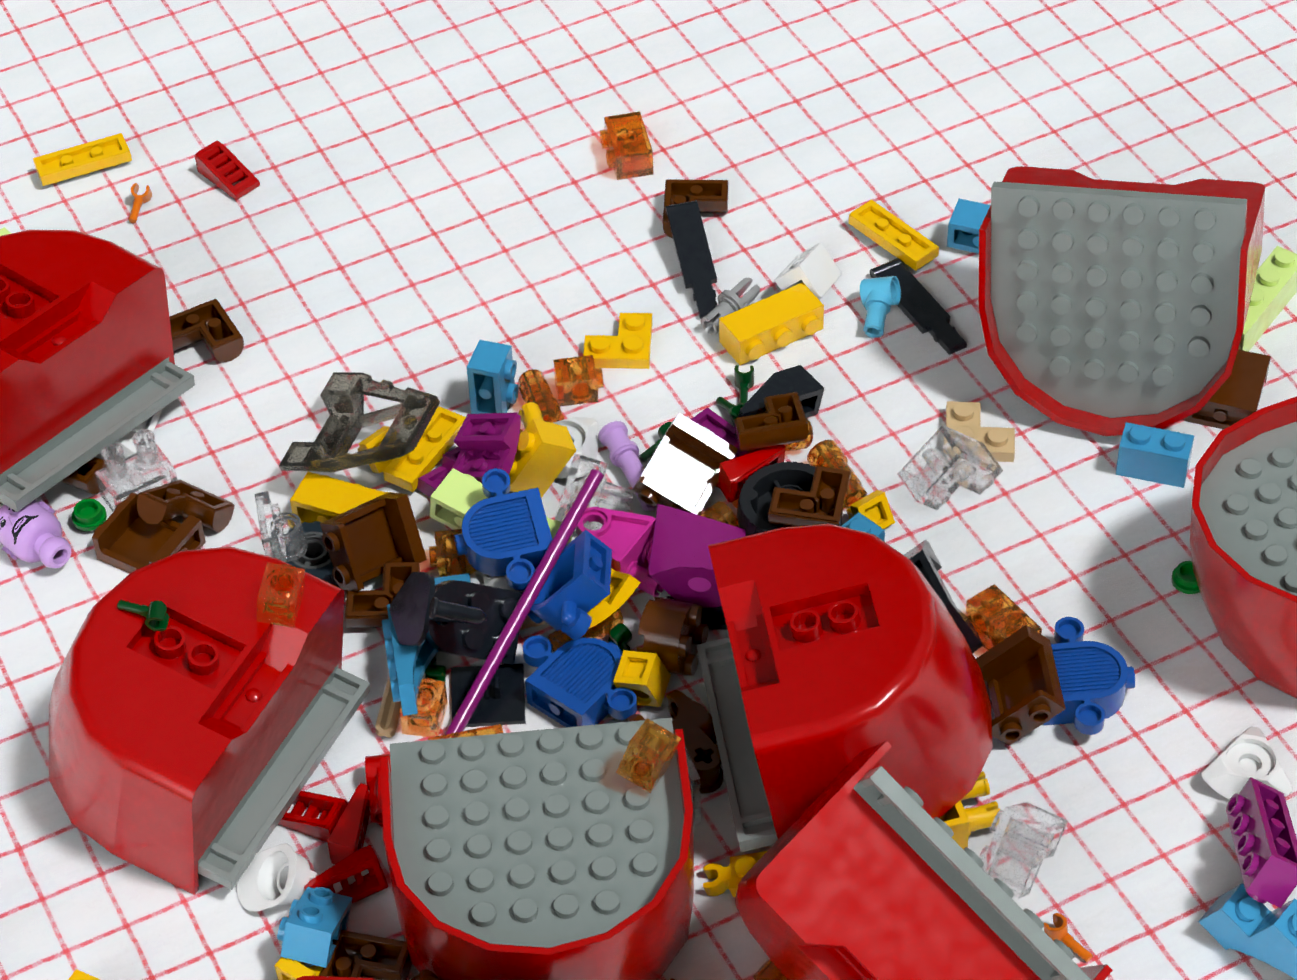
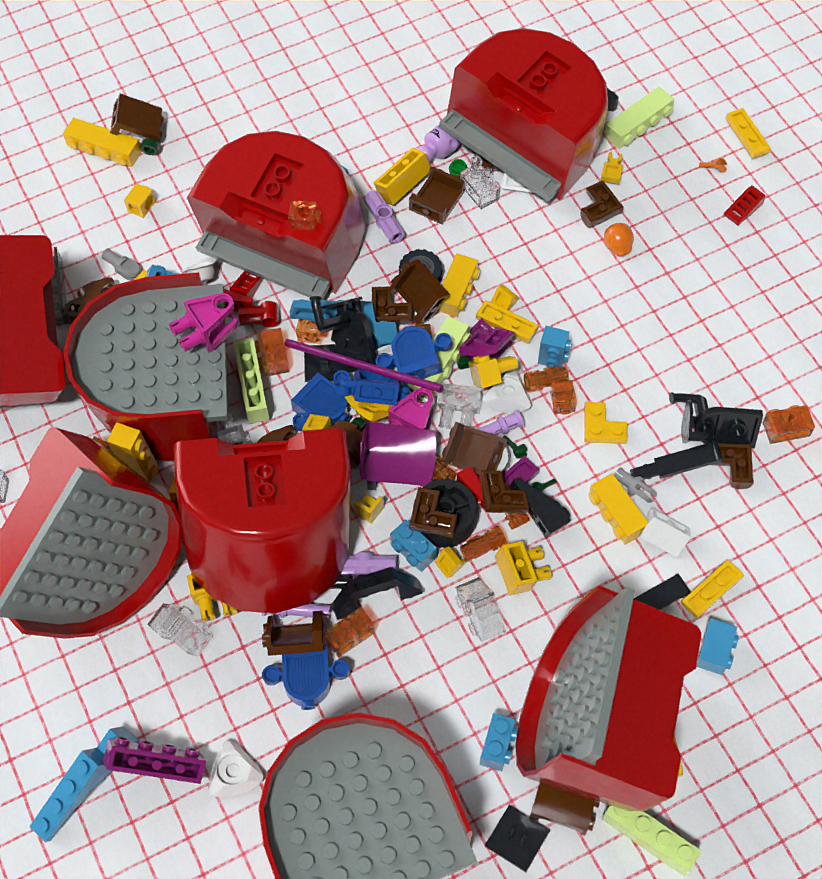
camera: 90 degrees right, 15 degrees up
(87, 566) = (402, 176): none -> yellow brick
(155, 613) = (291, 161): dark green hand -> none
(181, 500) = (465, 207): reddish brown brick -> none
(272, 313) = (619, 239): none -> orange hair
(280, 532) = (420, 243): clear plate -> none
(345, 404) = (527, 281): clear smoke windscreen -> none
(502, 726) = (206, 321): none -> dark pink piece
(641, 225) = (717, 423): none -> black plate
(648, 755) = (180, 393): clear orange brick -> none
(710, 908) = (133, 450): none -> yellow brick
(744, 382) = (567, 494): dark green hand -> none
(877, 297) = (646, 576): medium azure pin -> none
(880, 429) = (516, 567): none -> yellow brick
(966, 419) = (523, 625): tan plate -> none
(1061, 933) = (128, 652): orange hand -> none

